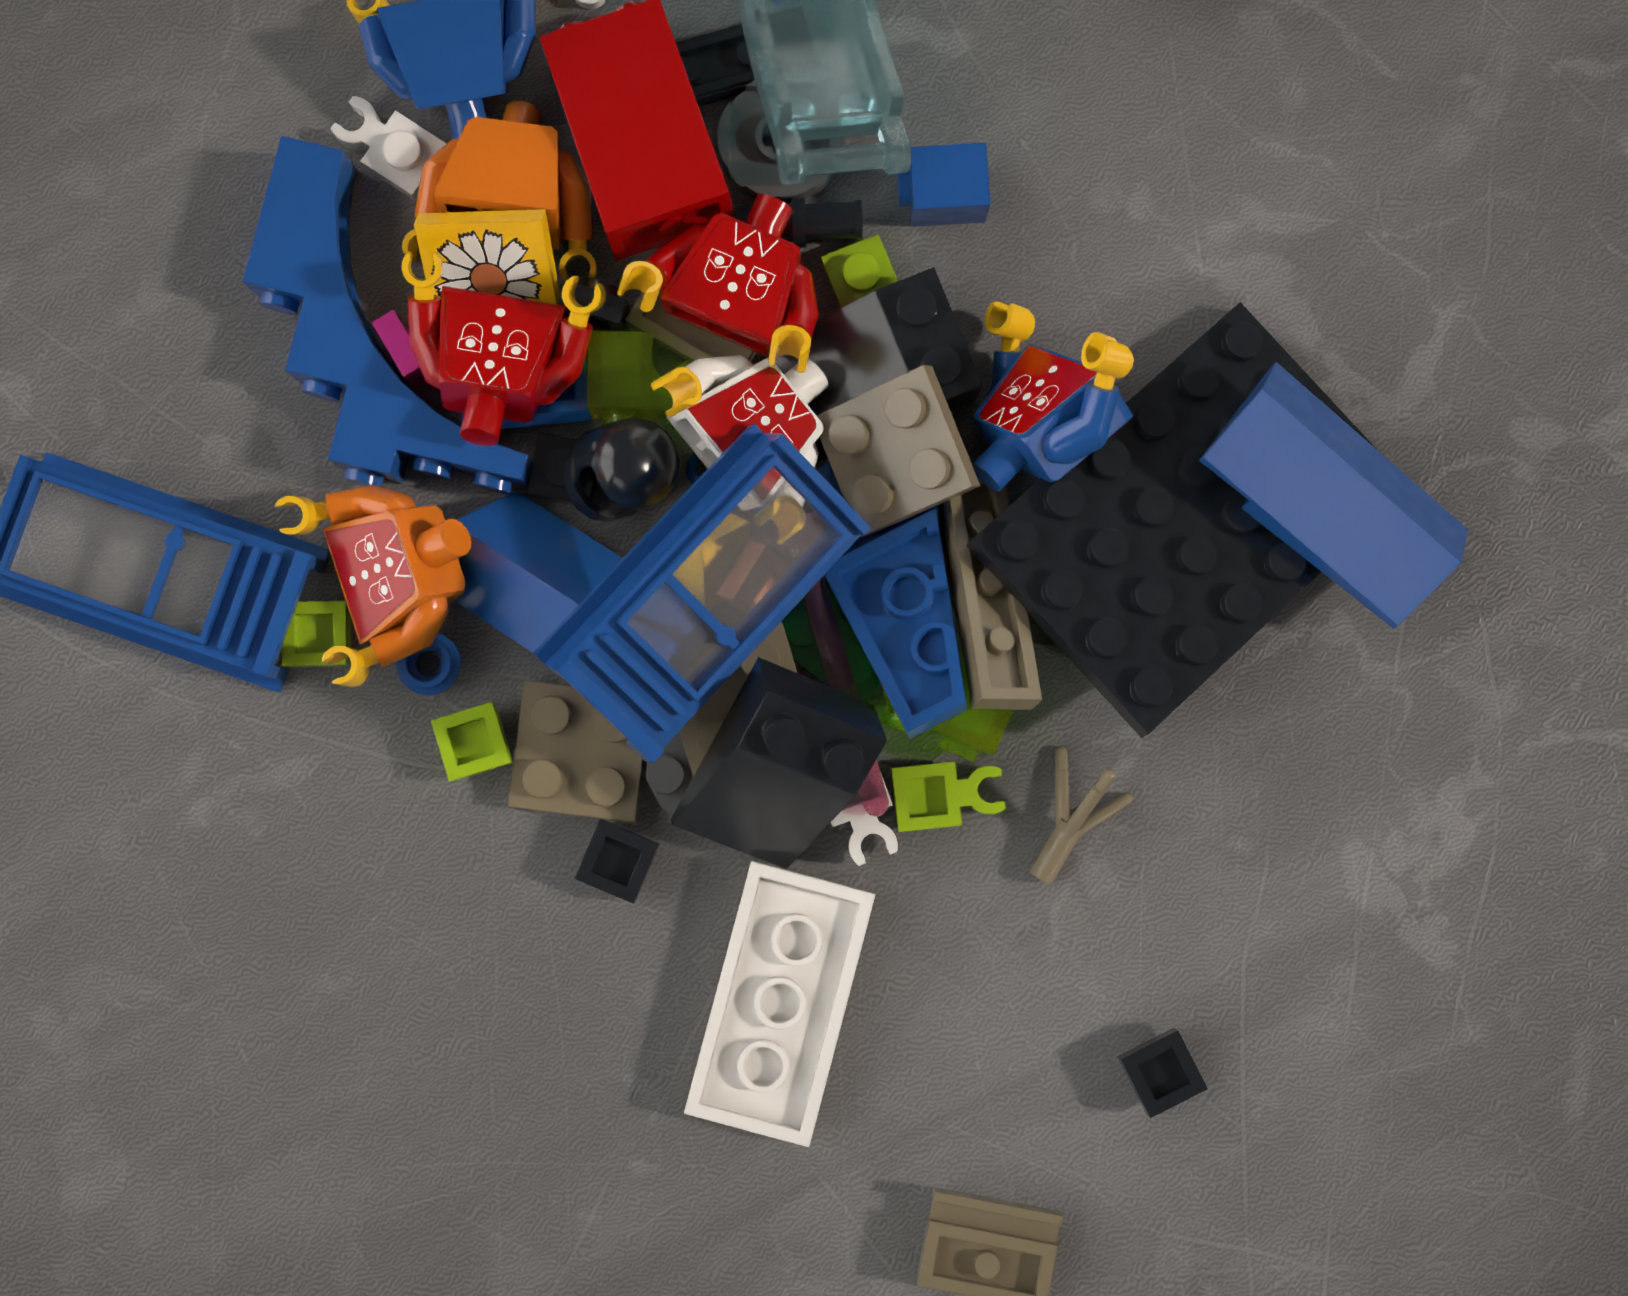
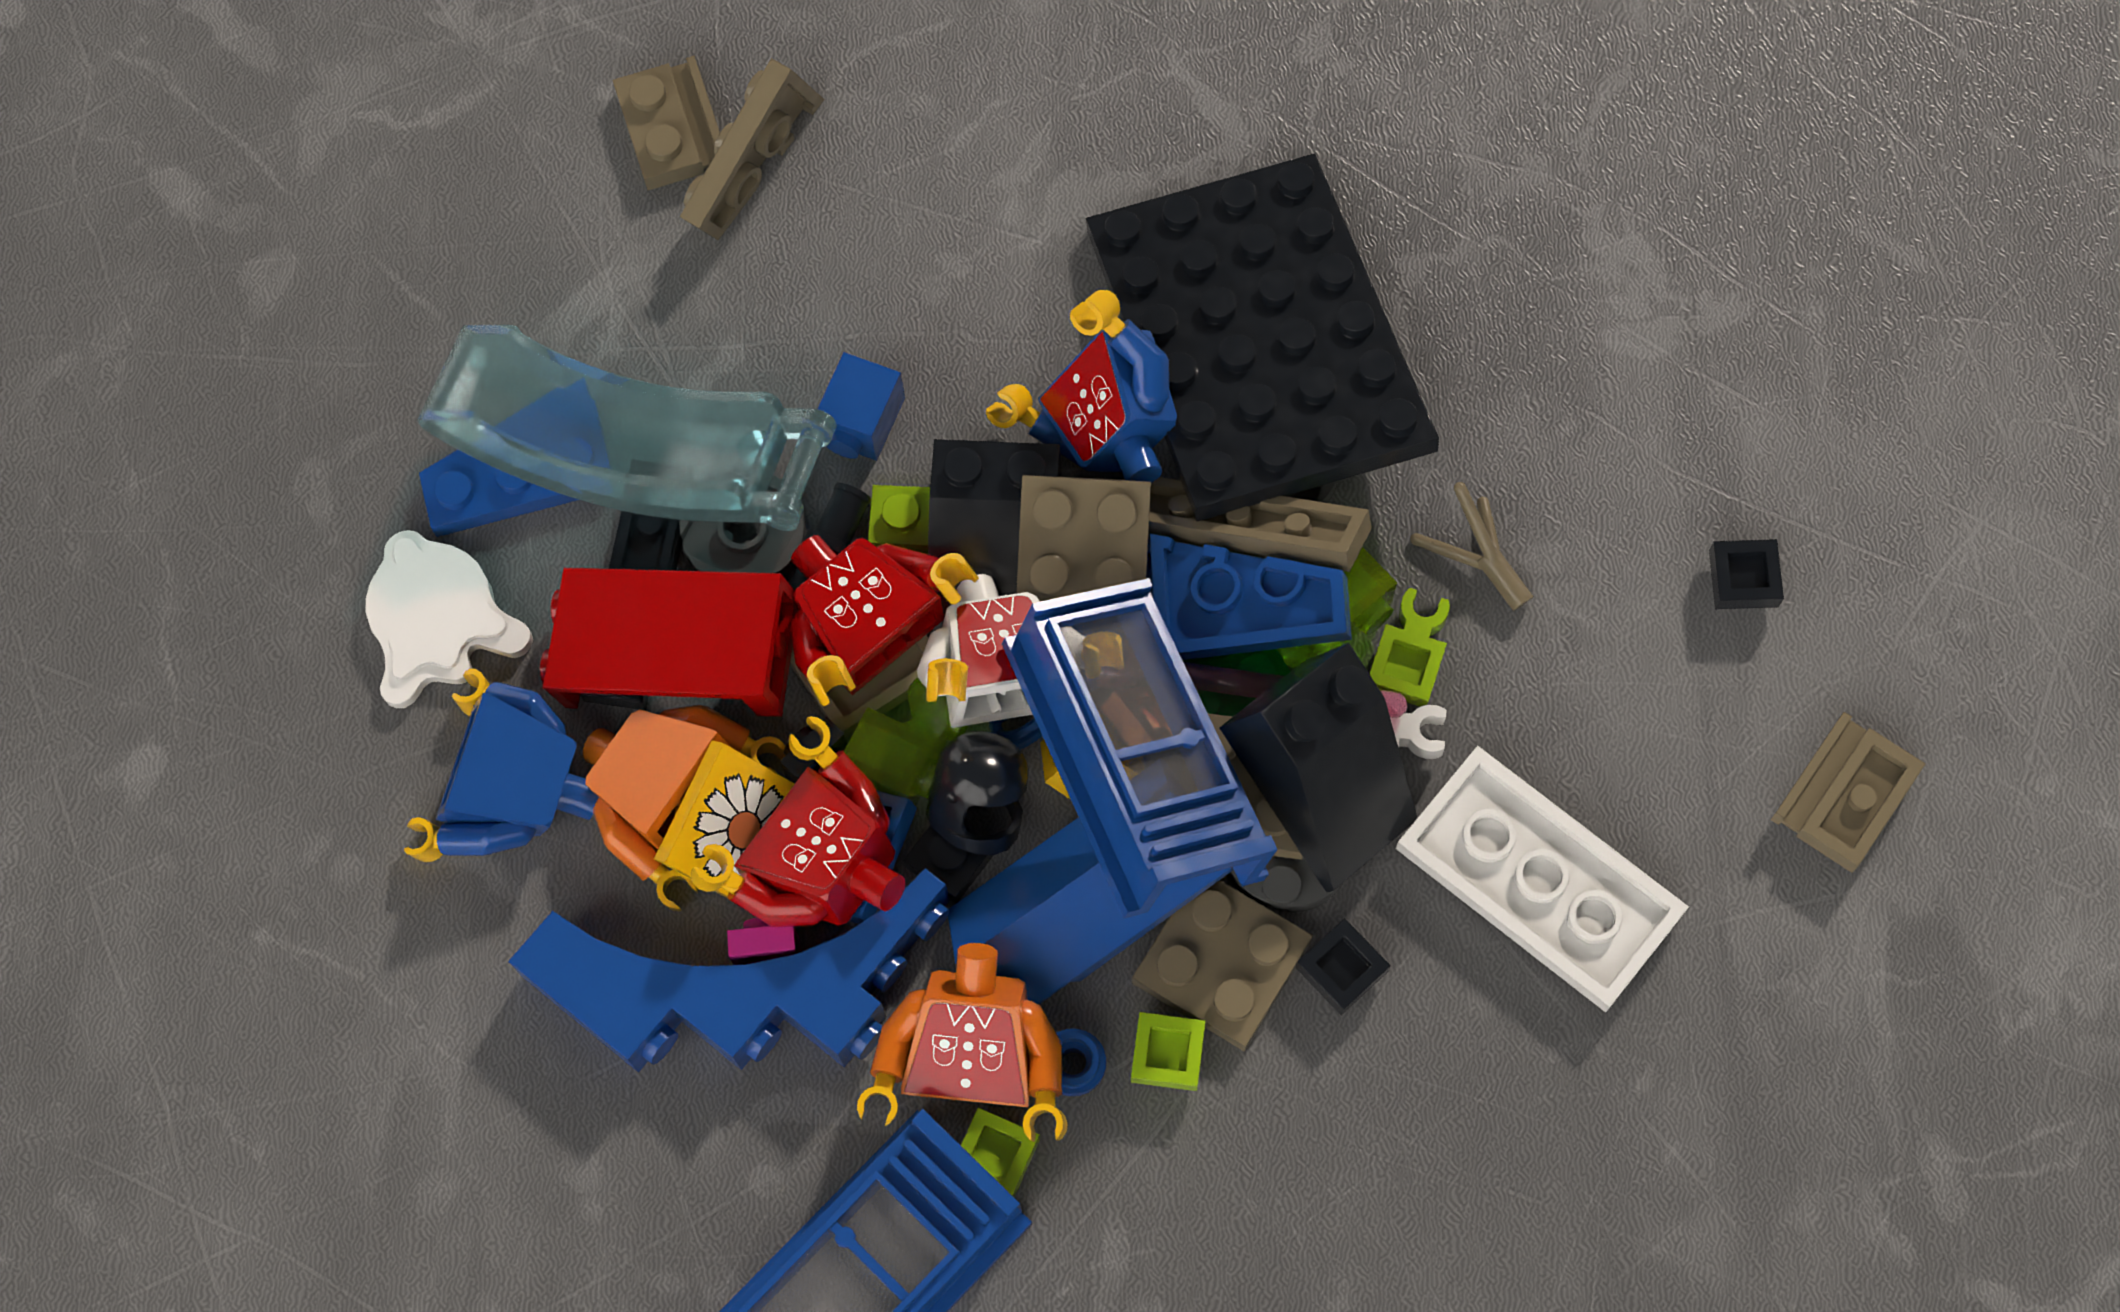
camera: 60 degrees left, 15 degrees down
(394, 149) = (572, 874): white plate -> none
(1336, 498) = (1301, 206): blue slope -> none

